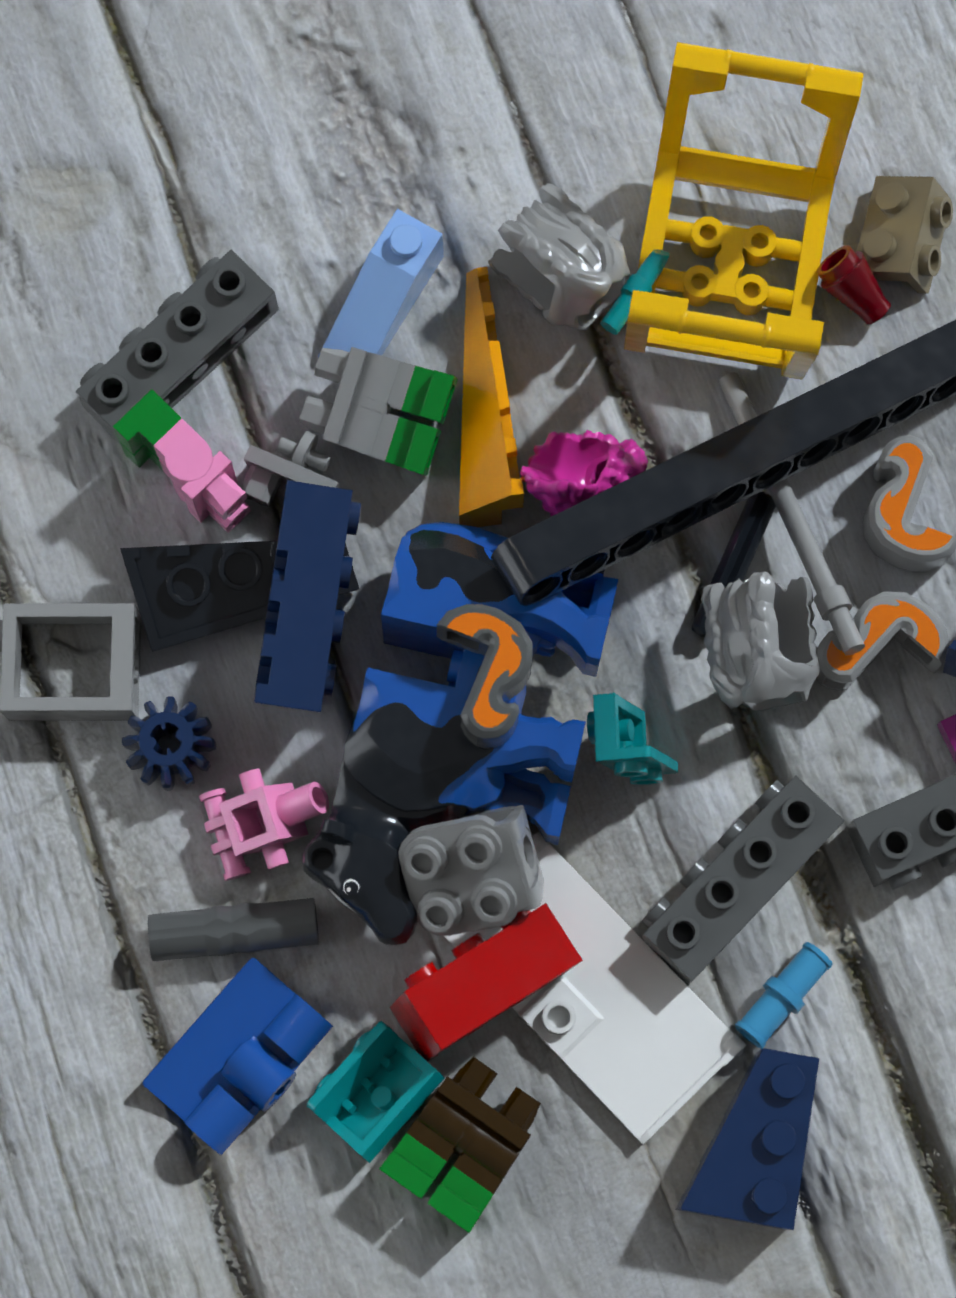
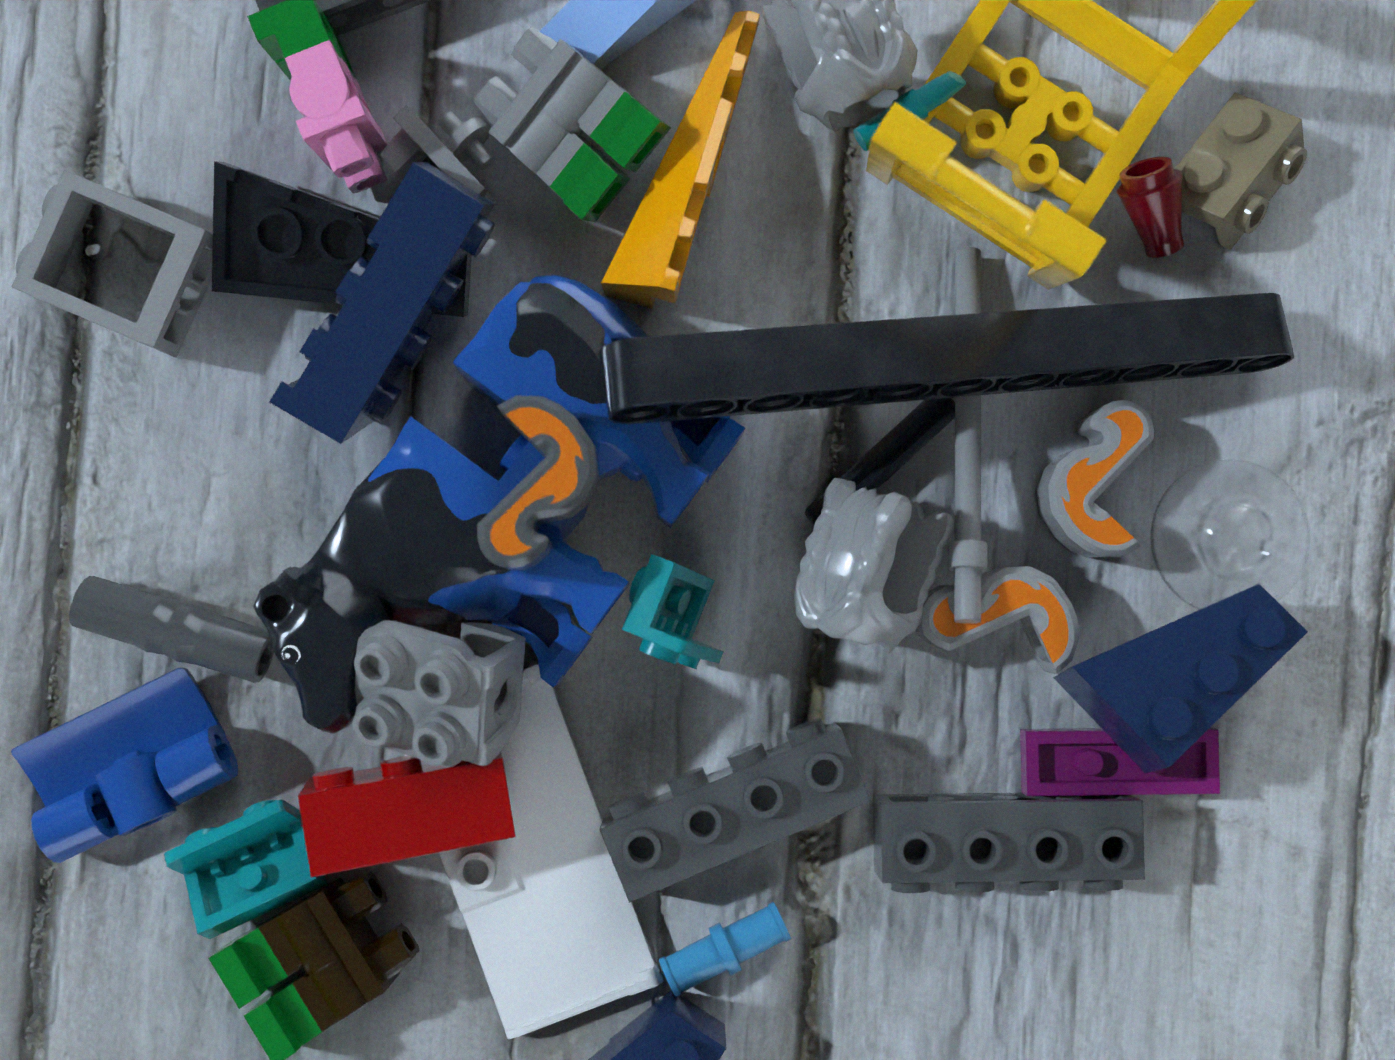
camera: 20 degrees right, 10 degrees up
(149, 752) = (167, 397): dark blue gear -> none
(260, 820) = (248, 526): bright pink piece -> none
(579, 467) = (756, 287): dark pink piece -> none

